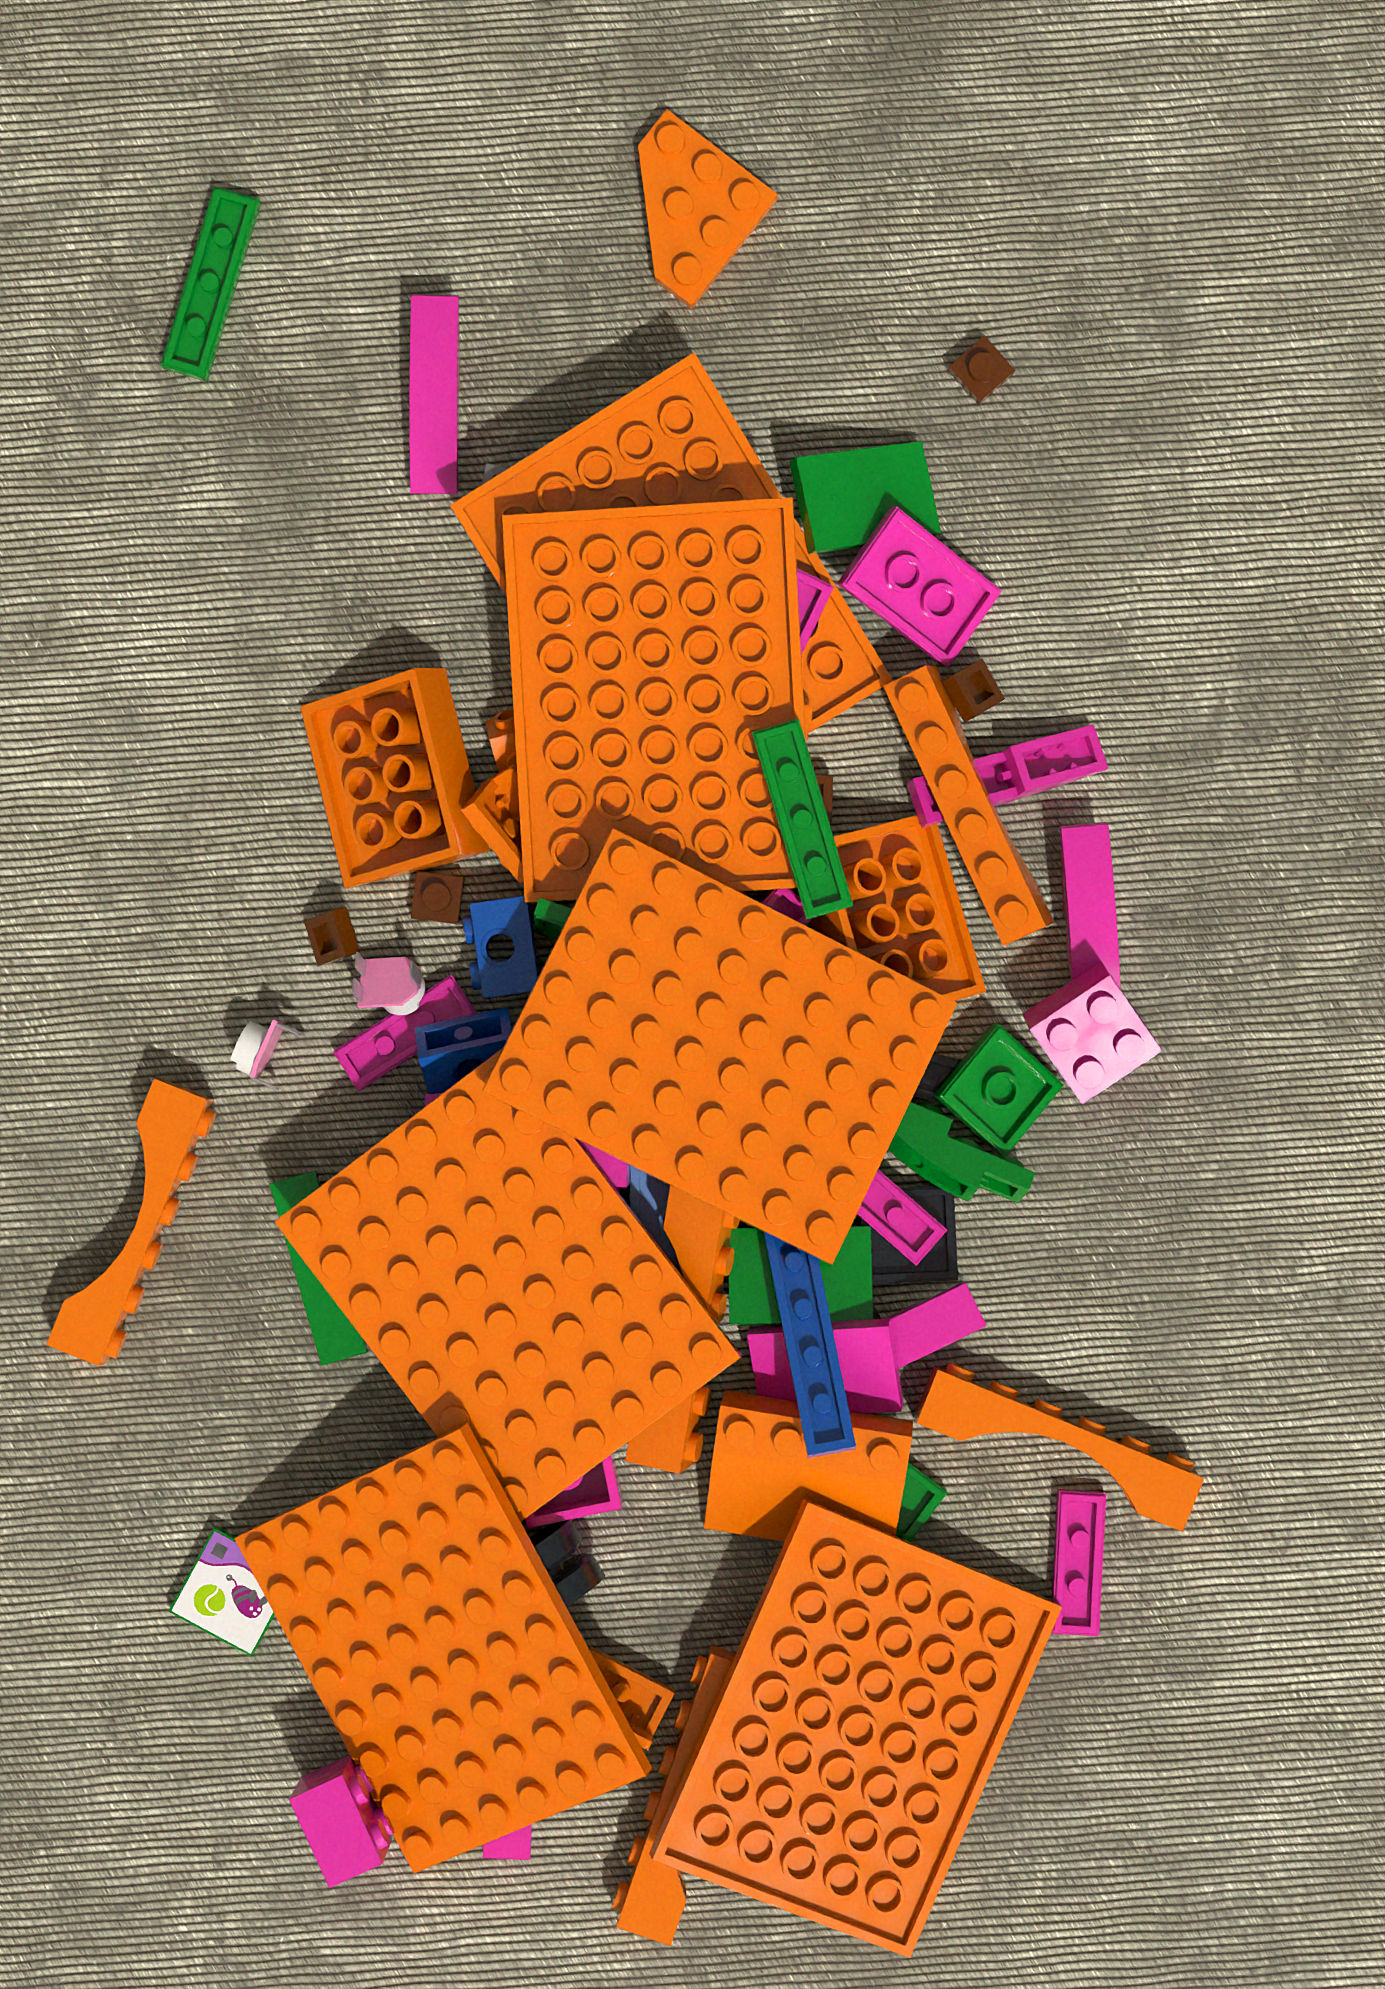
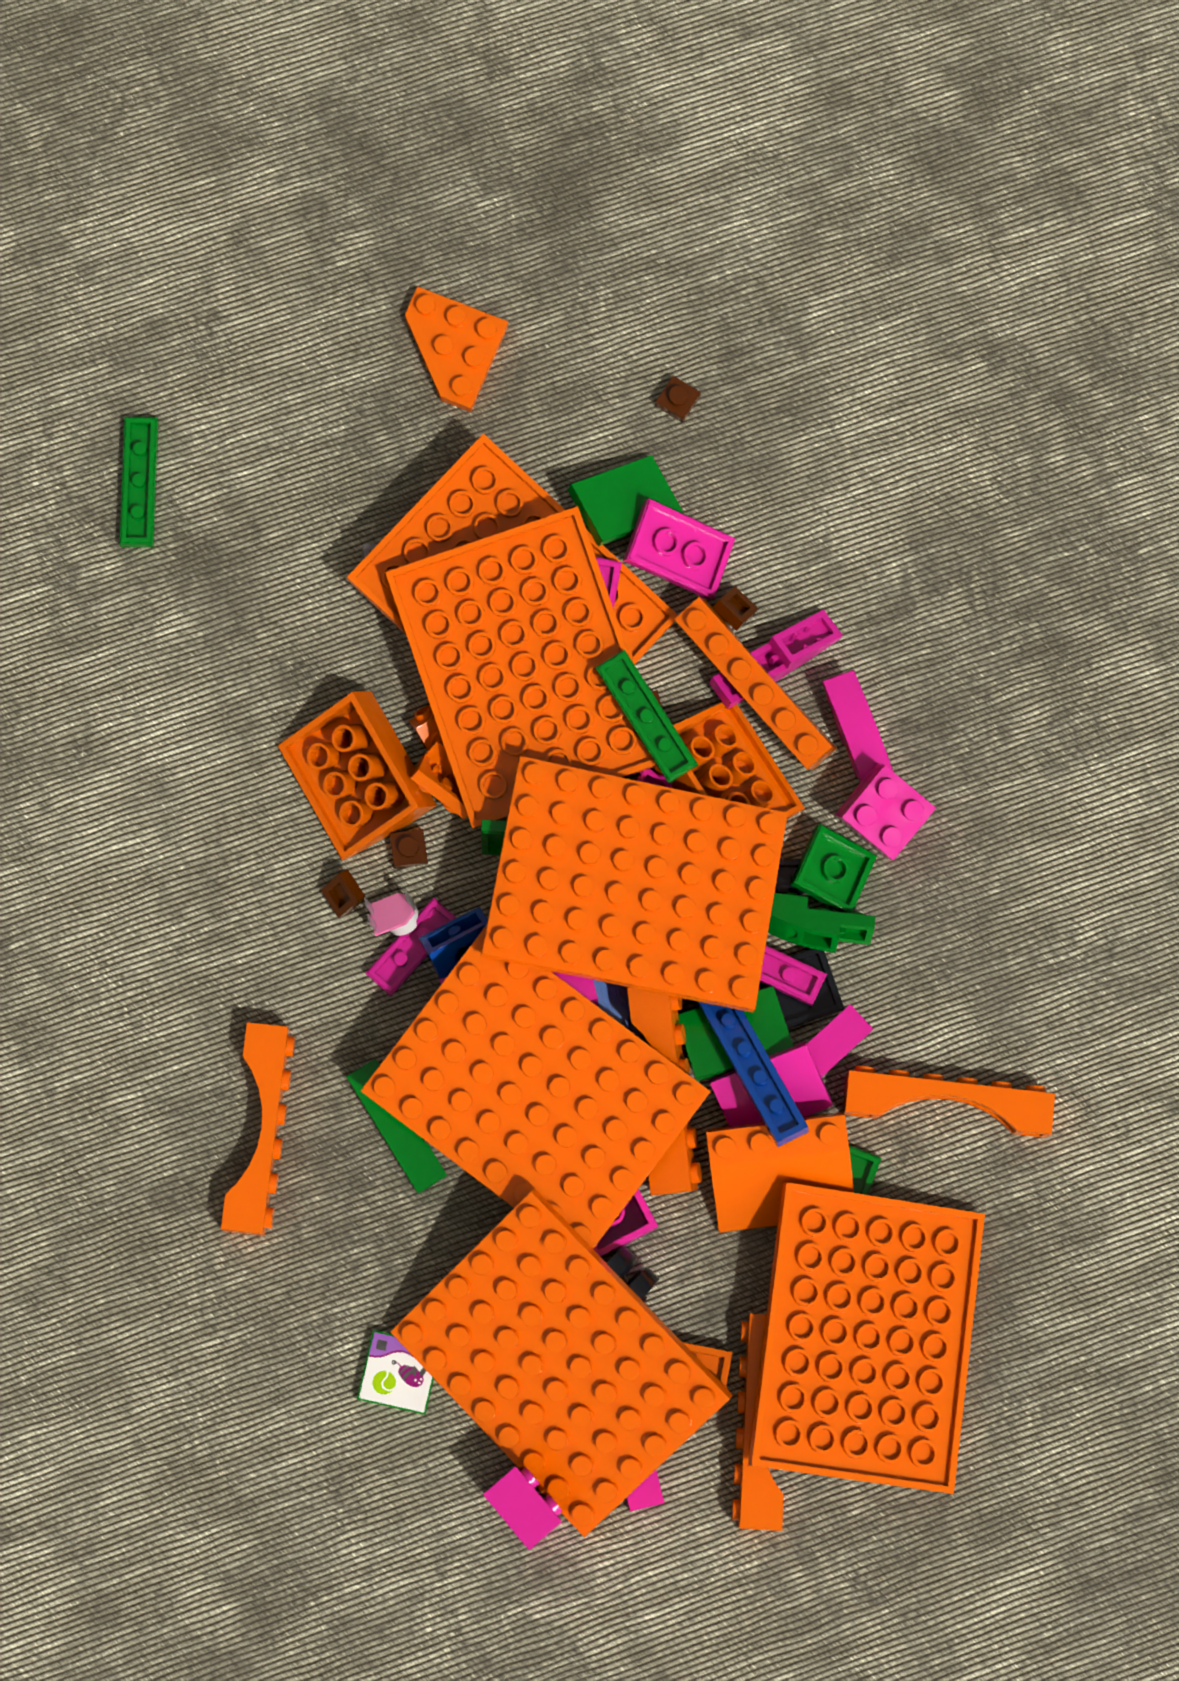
camera: 20 degrees left, 10 degrees down
(256, 1047) = (311, 983): piece -> none
(434, 394) = (313, 512): dark pink slope -> none
(497, 918) = (464, 848): blue brick -> none
(1078, 1561) = (987, 1180): dark pink tile -> none

